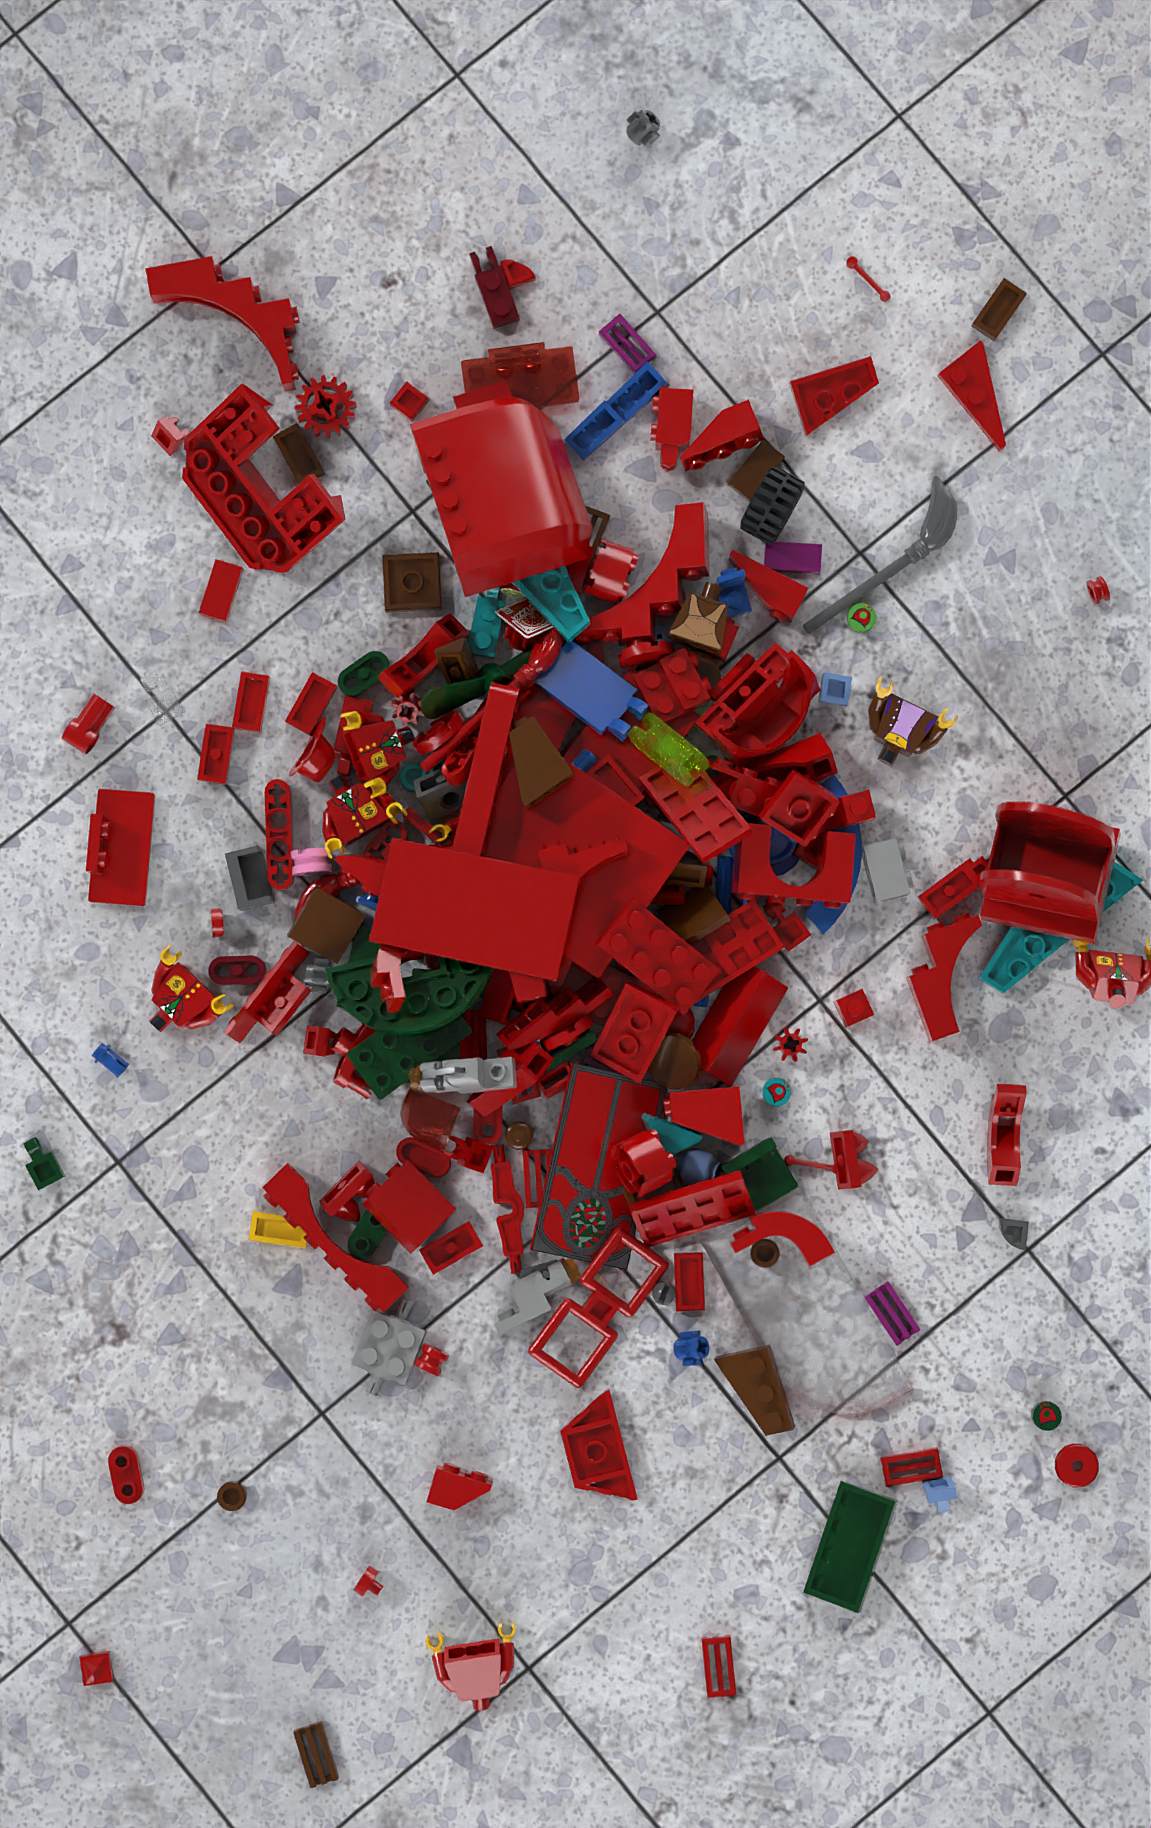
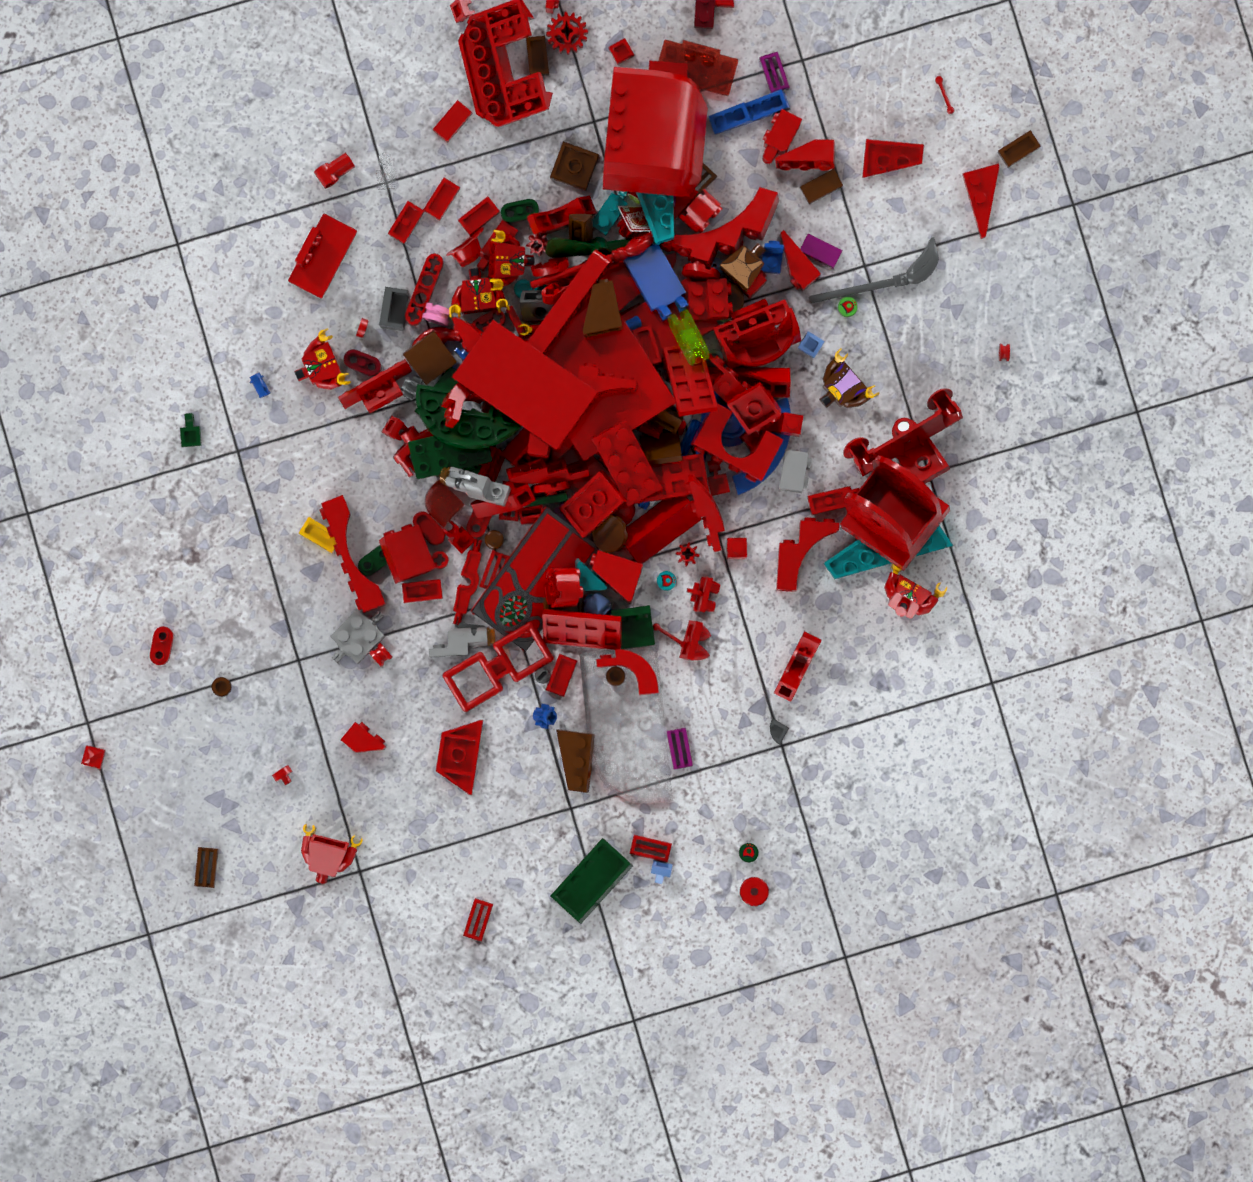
camera: 25 degrees right, 0 degrees up
(339, 1198) = (365, 531): red tile -> none
(464, 1198) = (443, 564): none -> red bush
(772, 505) = (820, 212): black tyre -> none
(792, 974) = (707, 509): none -> red slope
(832, 1090) = (701, 592): none -> red hips
(1028, 764) = (911, 441): none -> red piece

